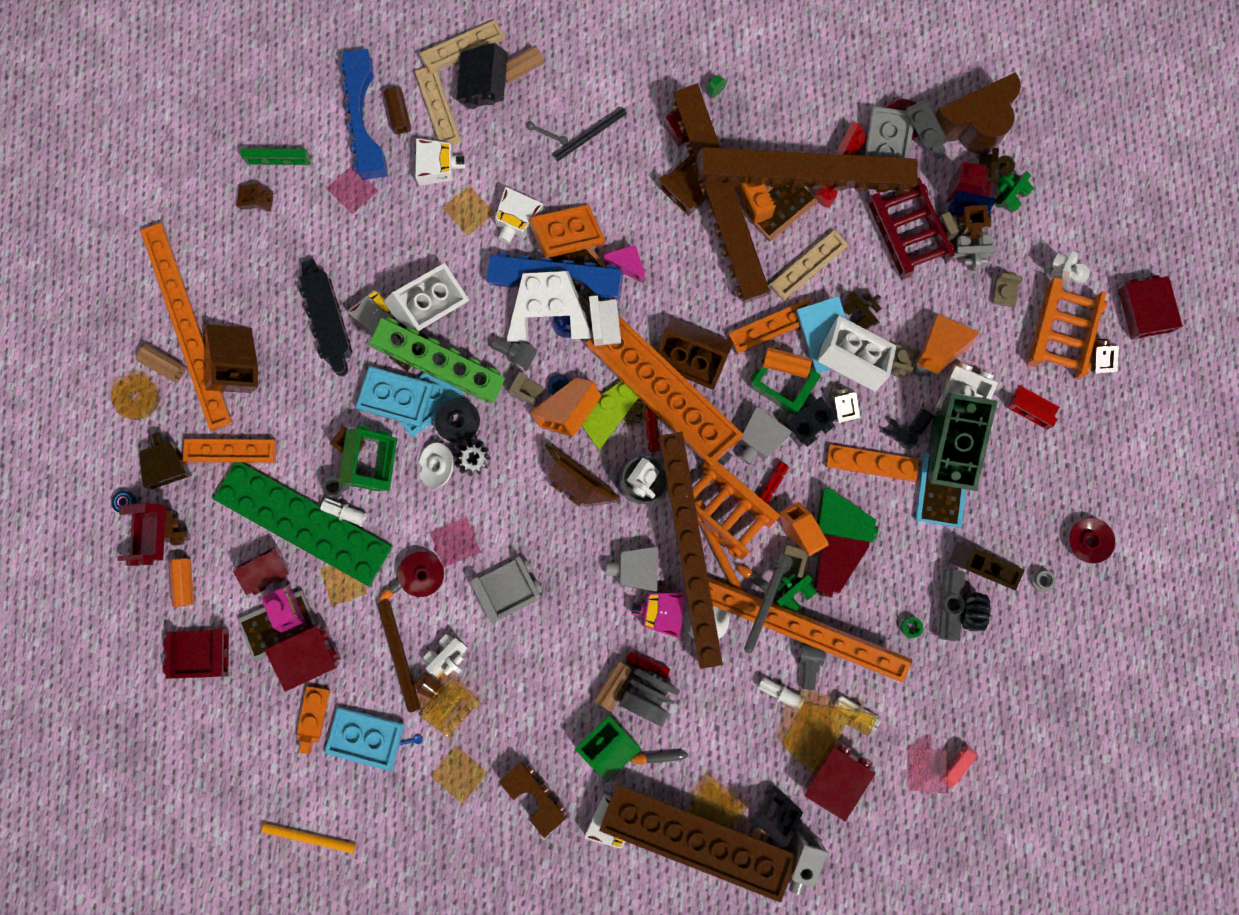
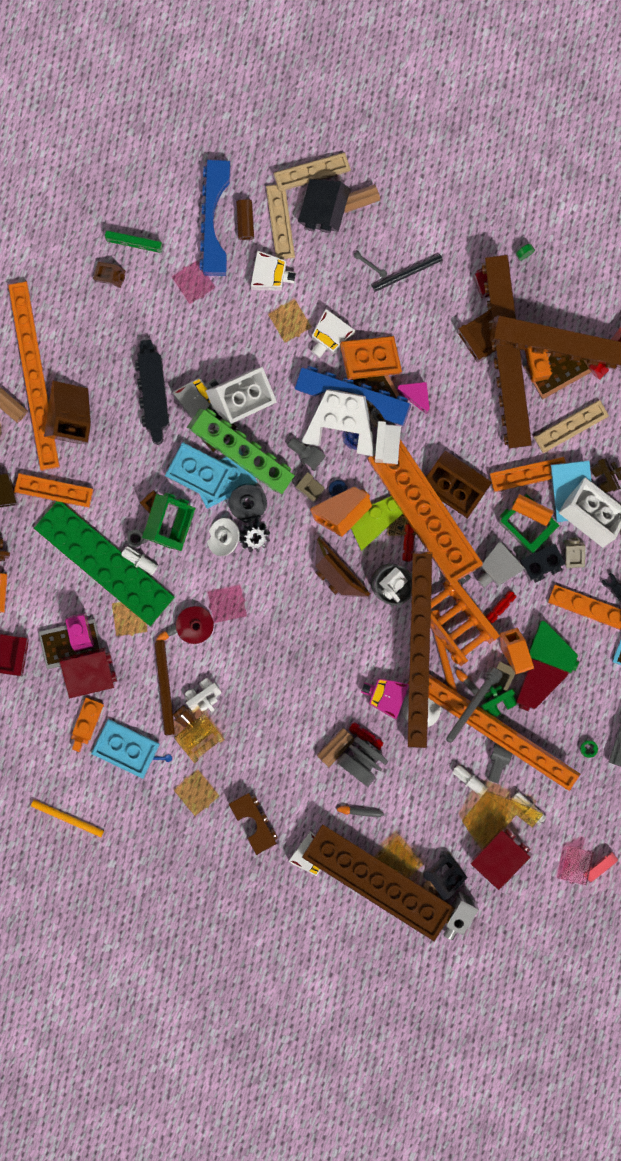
camera: 10 degrees right, 5 degrees up
(261, 571) = (65, 596): dark red brick -> none
(507, 589) = (263, 651): light grey panel -> none
(607, 748) = (320, 796): green slope -> none
(637, 569) = (373, 656): light grey torso -> none

